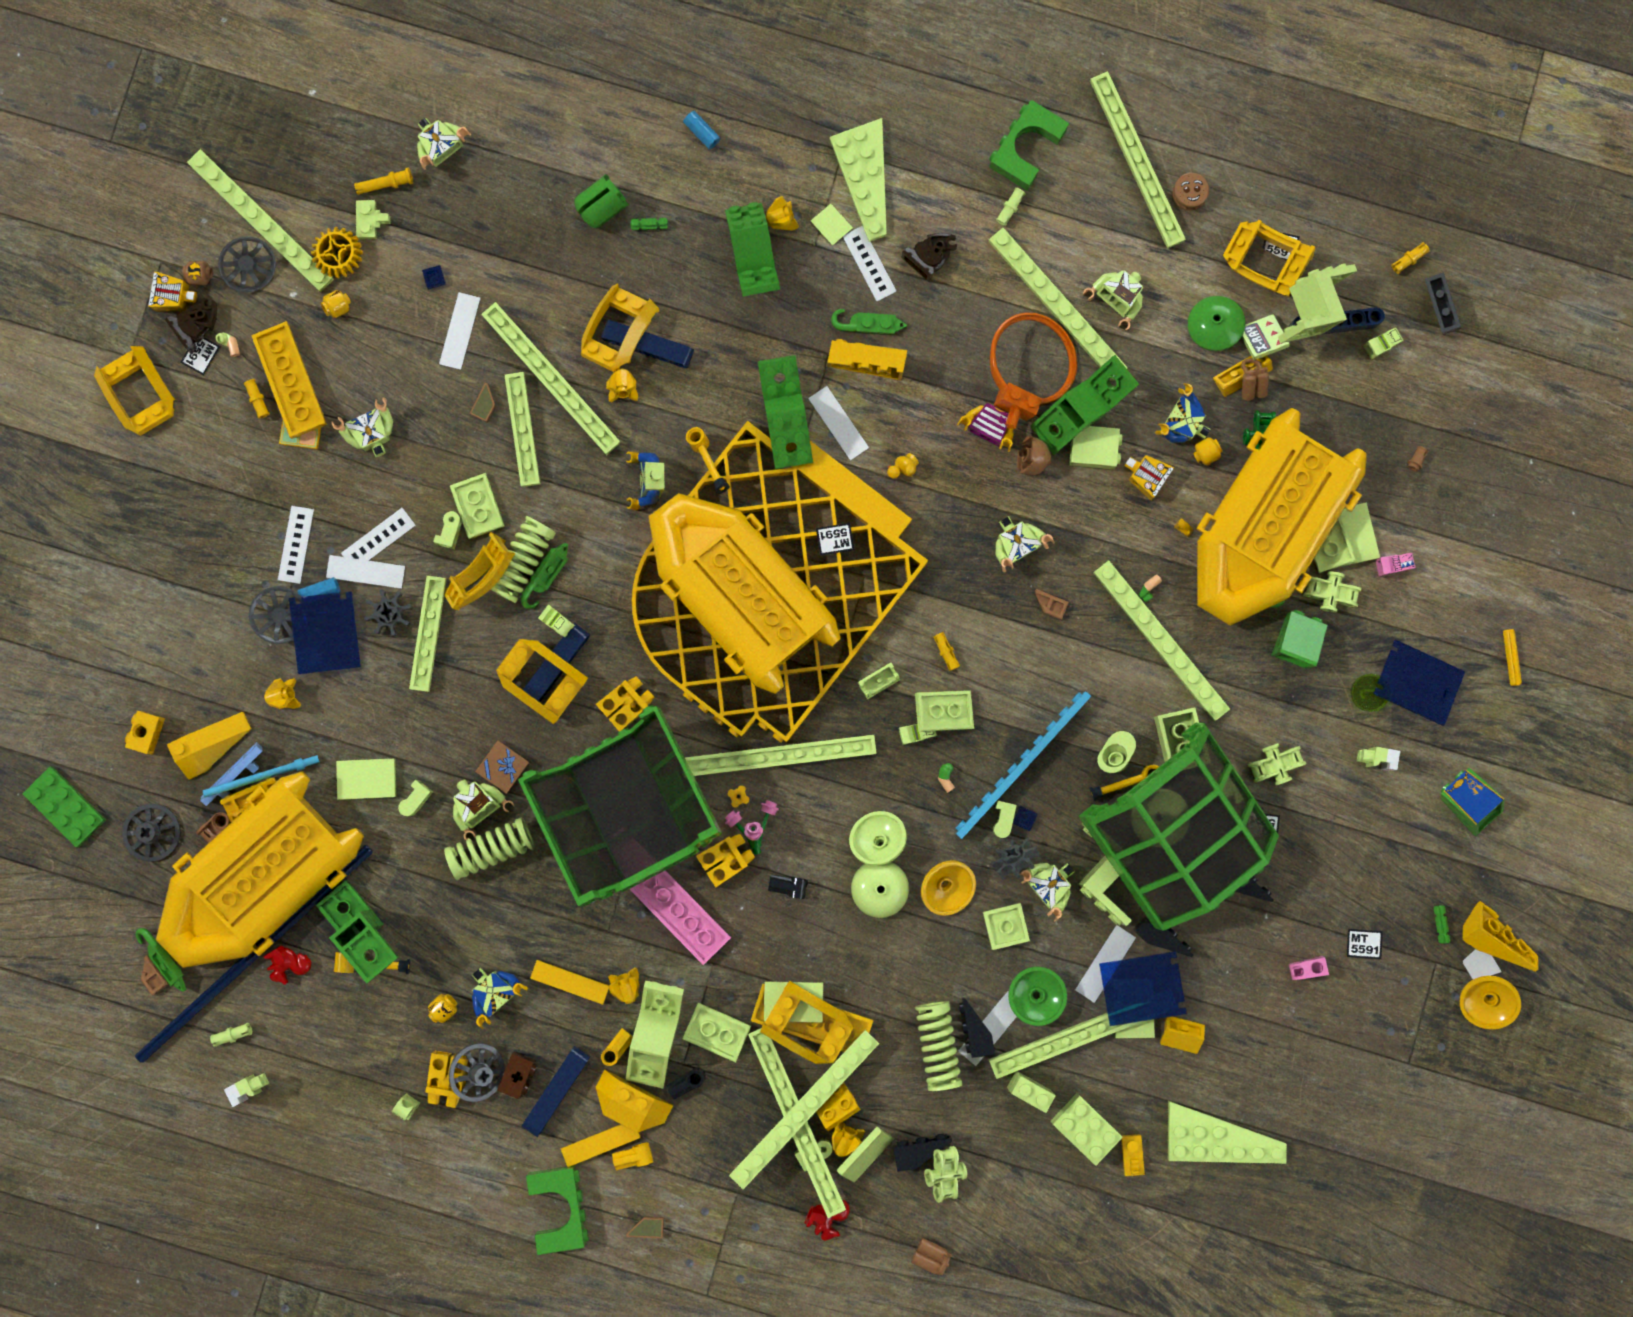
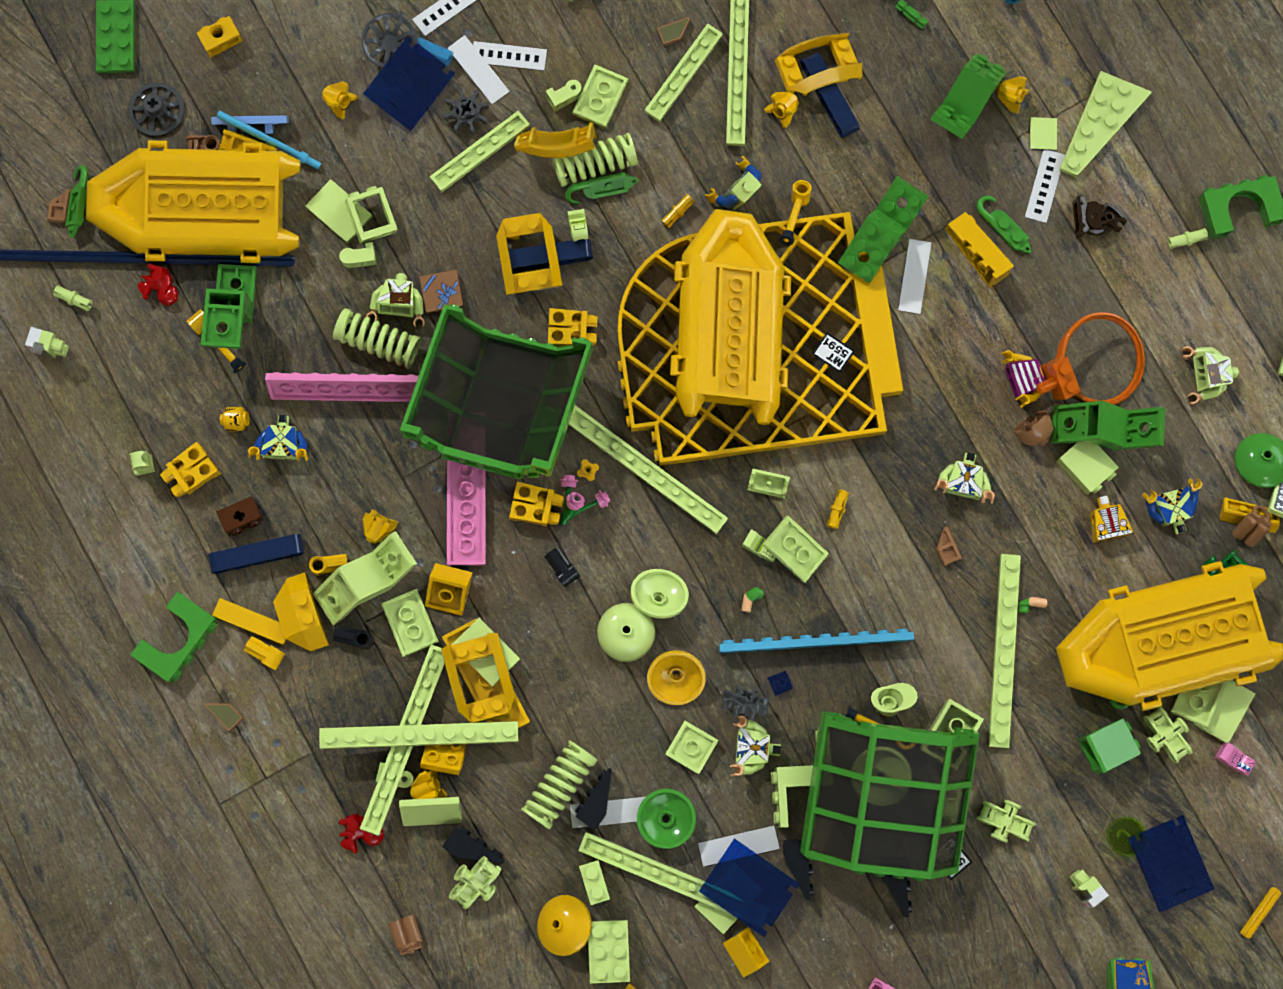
camera: 40 degrees right, 5 degrees down
(202, 748) = (249, 84): yellow wedge -> none
(369, 759) = (377, 233): none -> yellowish green window
(478, 1074) = (214, 487): dark grey wheel -> none
(499, 909) = (340, 387): none -> bright pink plate
(570, 982) = (341, 487): yellow tile -> none
(618, 539) = (677, 211): none -> yellow pin
(721, 981) = (448, 589): none -> yellow slope
(903, 464) = (934, 348): yellow animal -> none
(1005, 819) = (759, 673): yellowish green leg -> none
(1044, 1135) = (573, 925): none -> yellow dish
(1052, 298) = (1157, 329): yellowish green plate -> none
(1184, 527) = (1099, 584): yellow tile -> none
(1207, 451) = (1169, 545): yellow head -> none

